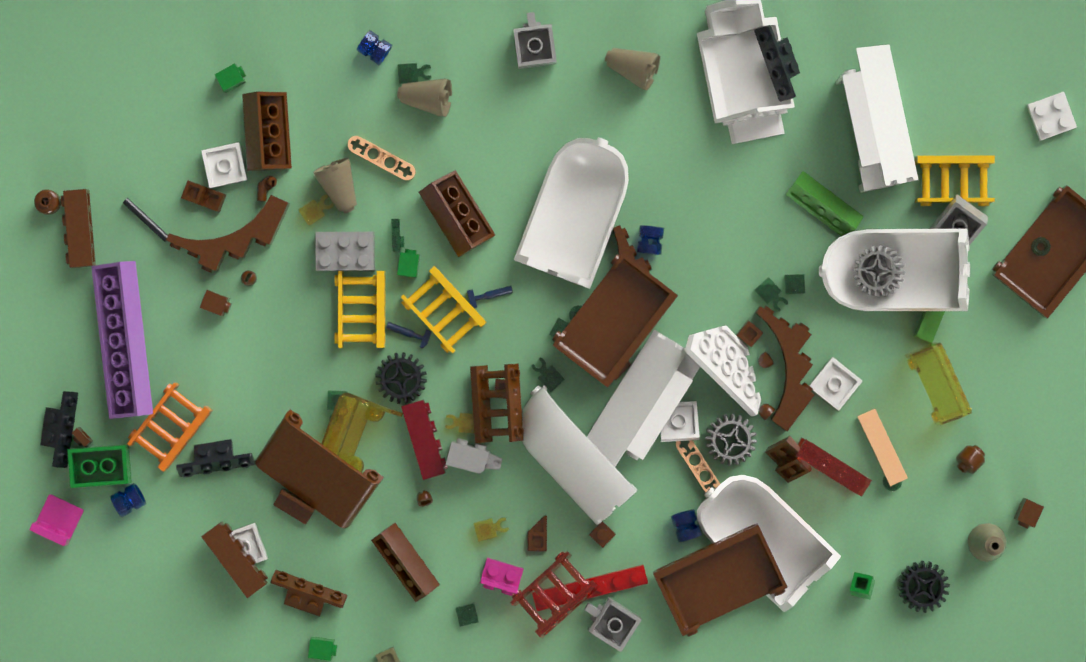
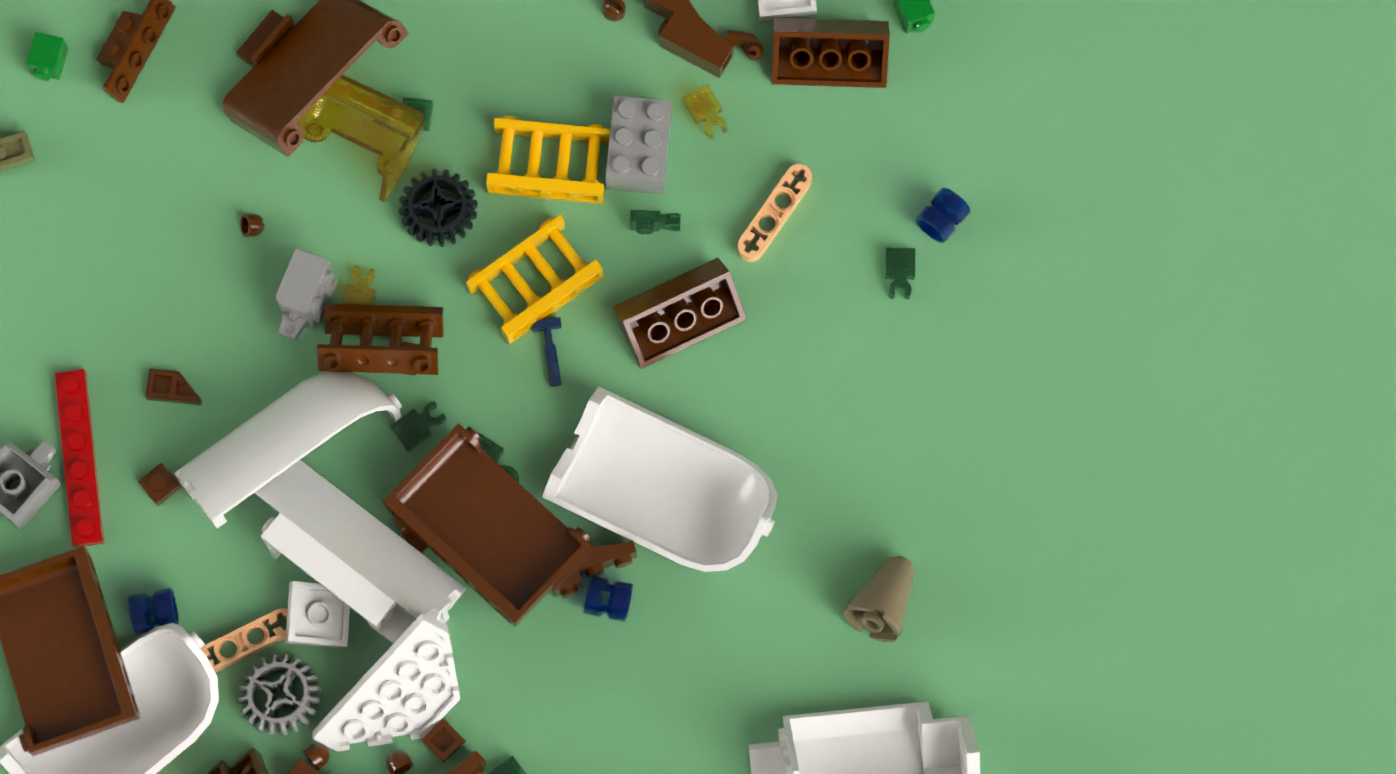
camera: 90 degrees right, 15 degrees down
(338, 184) = (740, 143): dark tan cone -> none
(405, 562) = (158, 185): reddish brown brick -> none
(408, 263) = (609, 234): green brick -> none
(410, 333) = (504, 229): dark blue piece -> none
(423, 439) = (342, 230): dark red brick -> none
(427, 95) = (862, 287): dark tan cone -> none
(467, 614) = (66, 271): clear green plate -> none
(487, 529) = (191, 312): clear yellow plate -> none
(501, 576) = (113, 324): dark pink bracket -> none
(534, 44) = (930, 450): light grey hinge -> none
(558, 613) = (61, 423): clear red fence -> none

